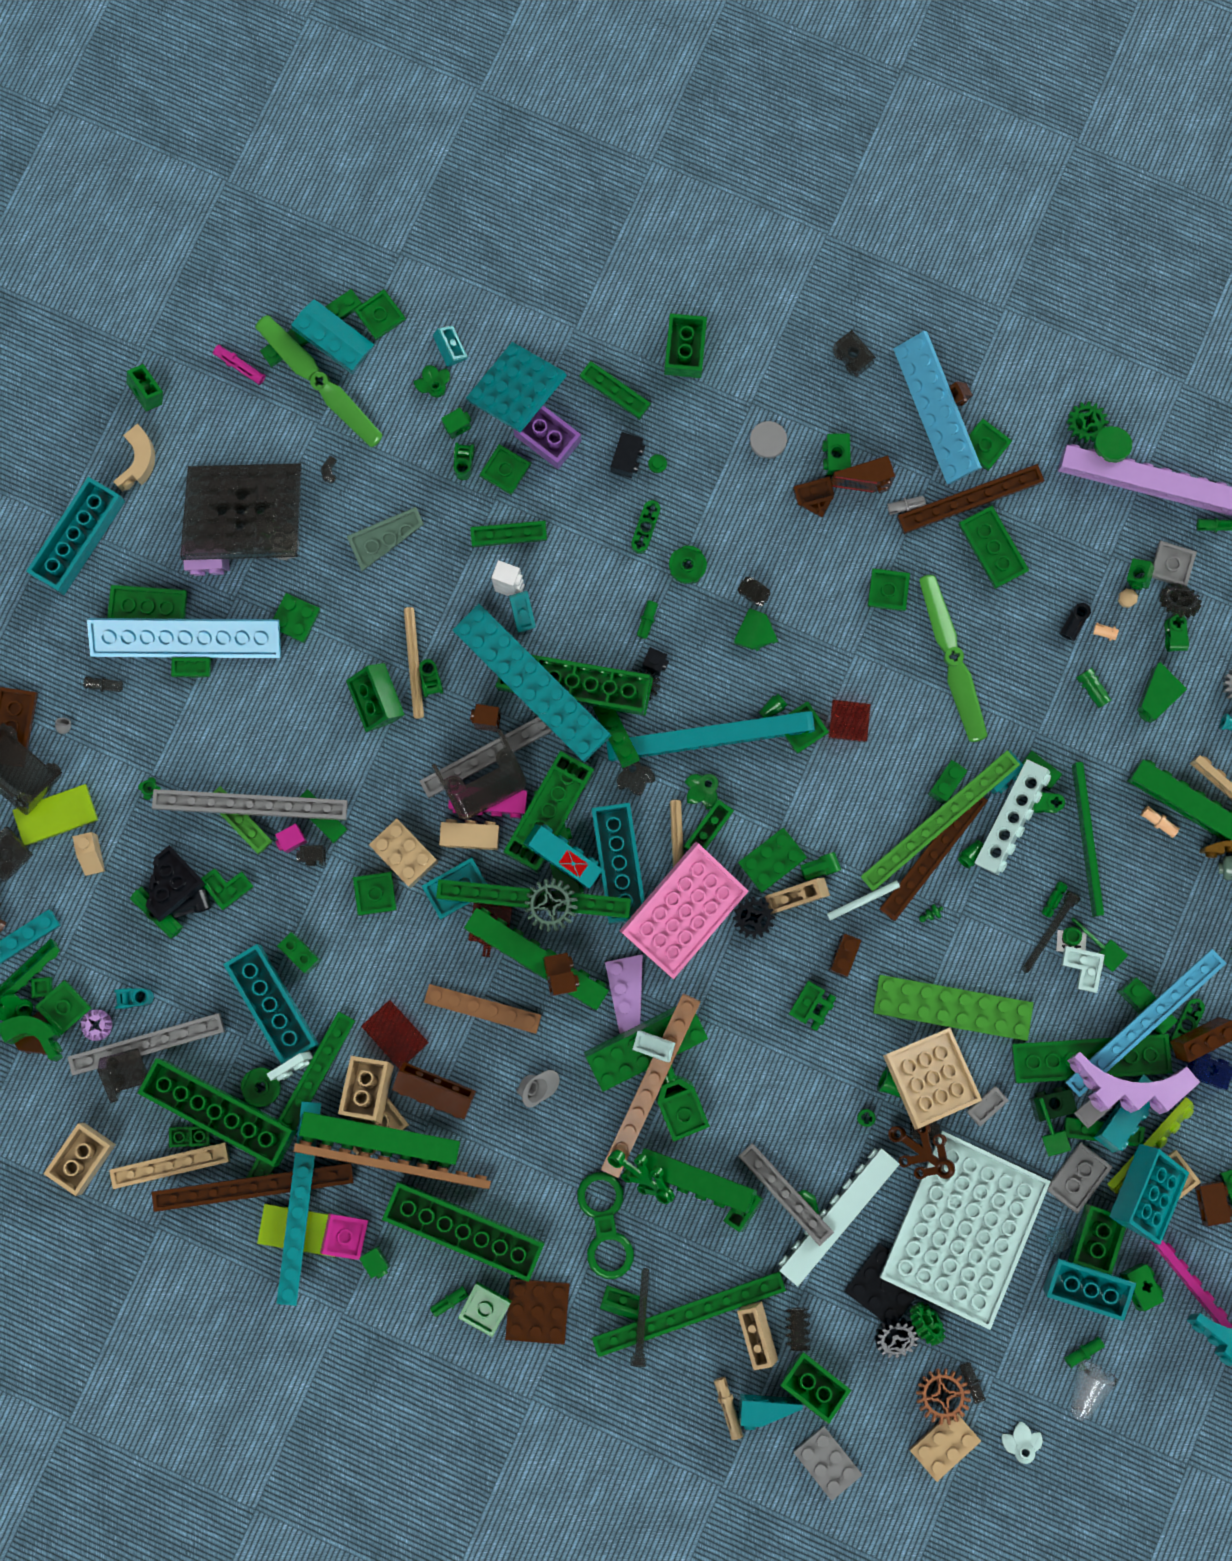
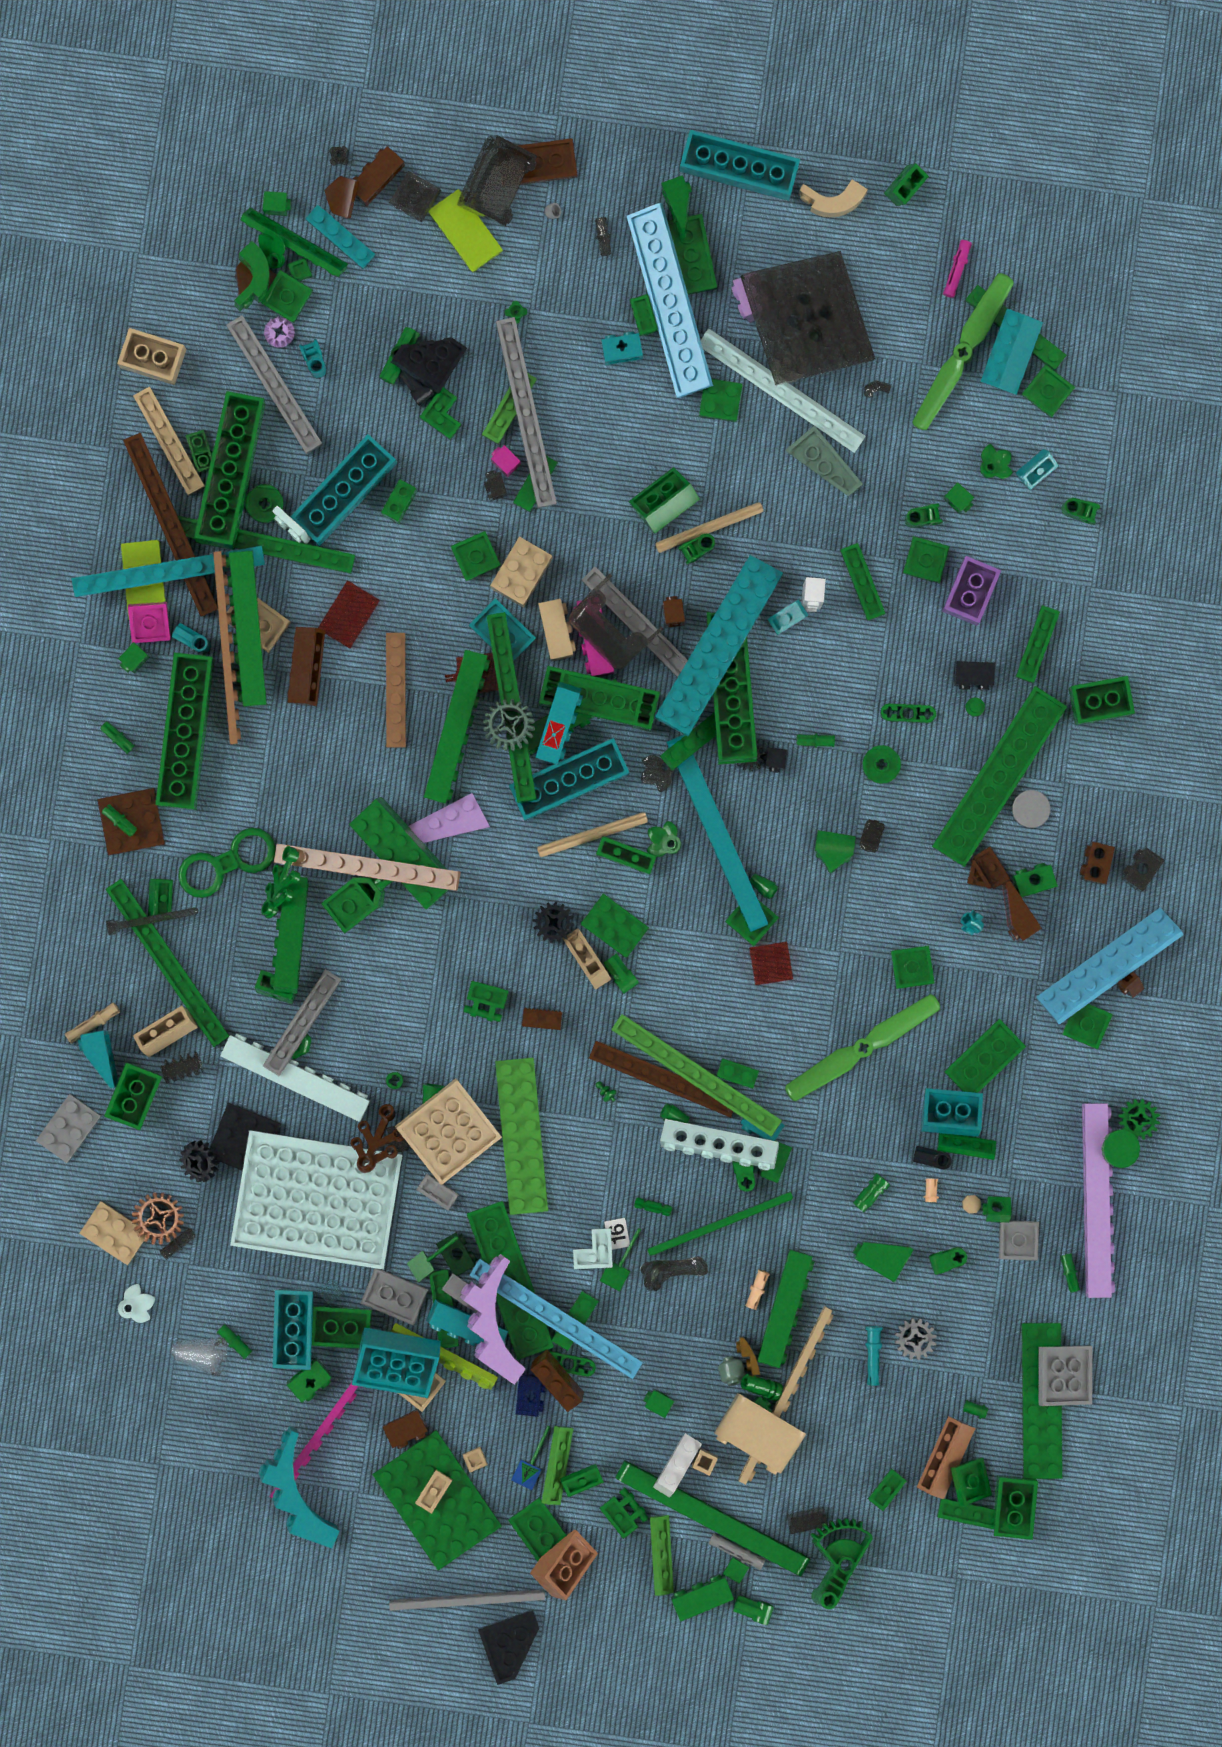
camera: 70 degrees right, 5 degrees up
(87, 603) = (677, 197): none -> green slope
(89, 853) = (437, 274): tan slope -> none
(121, 1072) = (241, 370): clear smoke bracket -> none
(221, 704) = (612, 352): none -> teal brick
(307, 555) = (783, 393): none -> light aqua plate
(366, 1089) = (289, 602): tan brick -> none
(372, 1199) = (190, 638): none -> teal piece
(484, 1309) = (119, 772): plate -> none
(502, 313) = (1084, 511): none -> green piece
(516, 387) = (1010, 546): teal plate -> none
(533, 1323) = (119, 820): none -> green axle
(538, 1087) = (335, 763): light grey piece -> none
(559, 974) = (445, 752): reddish brown brick -> none
(653, 1046) = (403, 858): light aqua tile -> none
(684, 910) = (540, 853): bright pink plate -> none
(730, 459) = (999, 776): none -> green plate
(839, 388) = (1103, 864): none -> reddish brown brick
(861, 522) = (972, 922): none -> teal gear
(863, 900) = (600, 1023): light aqua bar -> none
(906, 505) = (1002, 961): light grey axle -> none
(927, 1323) = (219, 1186): green gear -> none
(970, 499) = (1027, 1024): reddish brown plate -> none
(1037, 590) = (952, 1112): none -> teal slope
(1070, 900) = (655, 1221): clear smoke piece -> none
(1071, 586) = (967, 1145): none -> green plate
(1072, 936) = (622, 1232): green plate -> none
(1119, 912) = (659, 1271): none -> clear smoke hair
(1180, 600) = (981, 1254): clear smoke gear -> none

